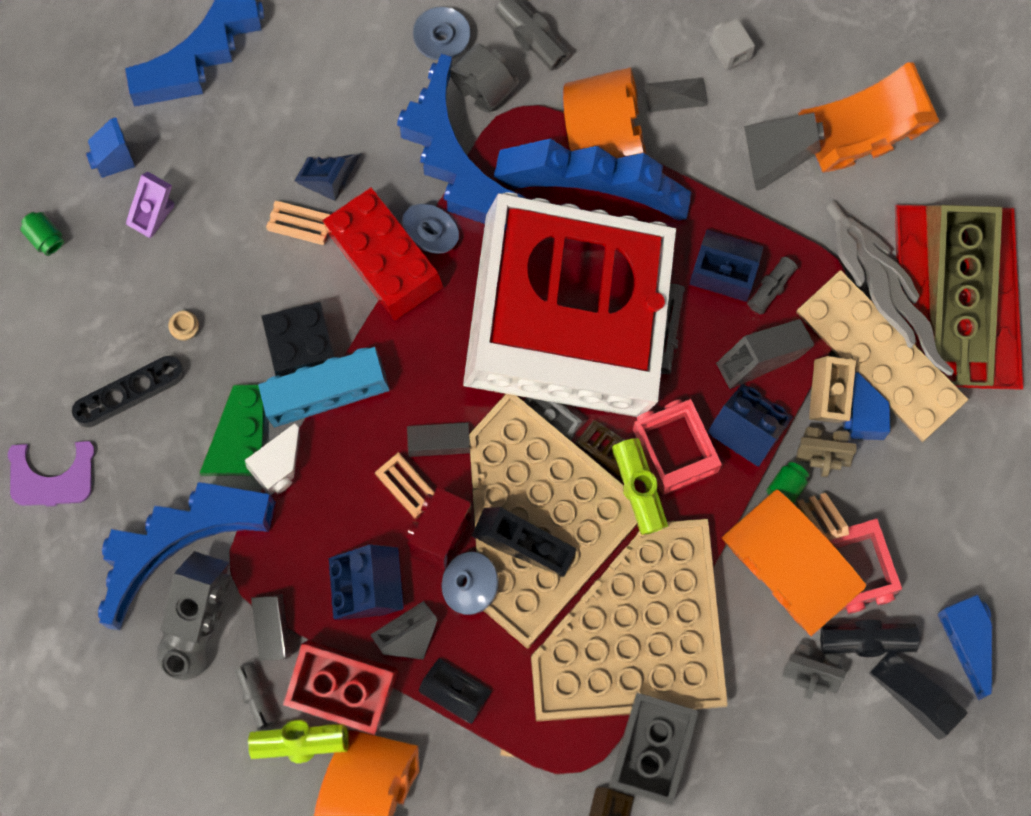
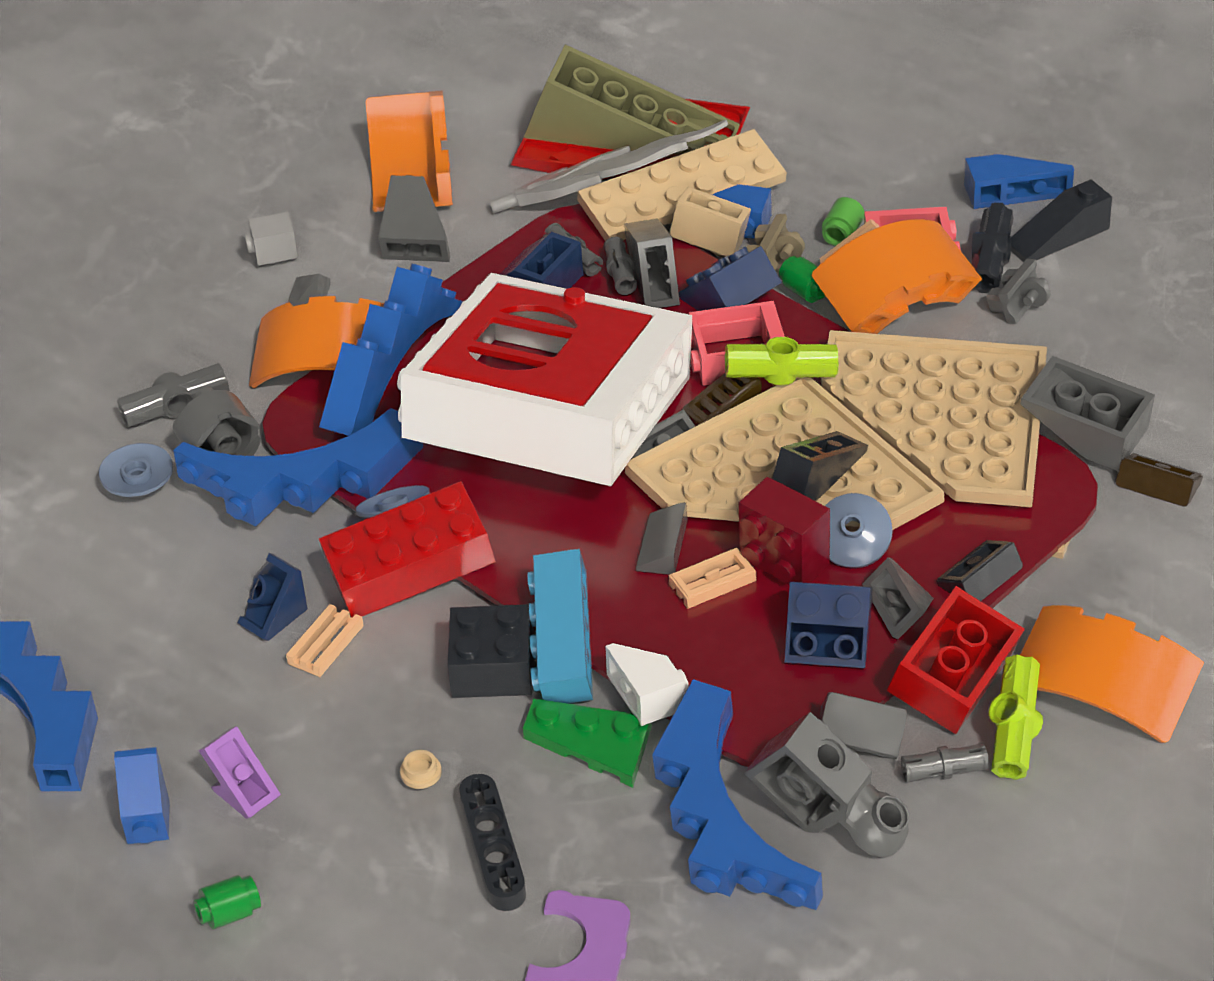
camera: 70 degrees left, 30 degrees down
(759, 324) = (620, 265): none -> dark grey pin
(875, 502) = (842, 220): none -> bright green brick

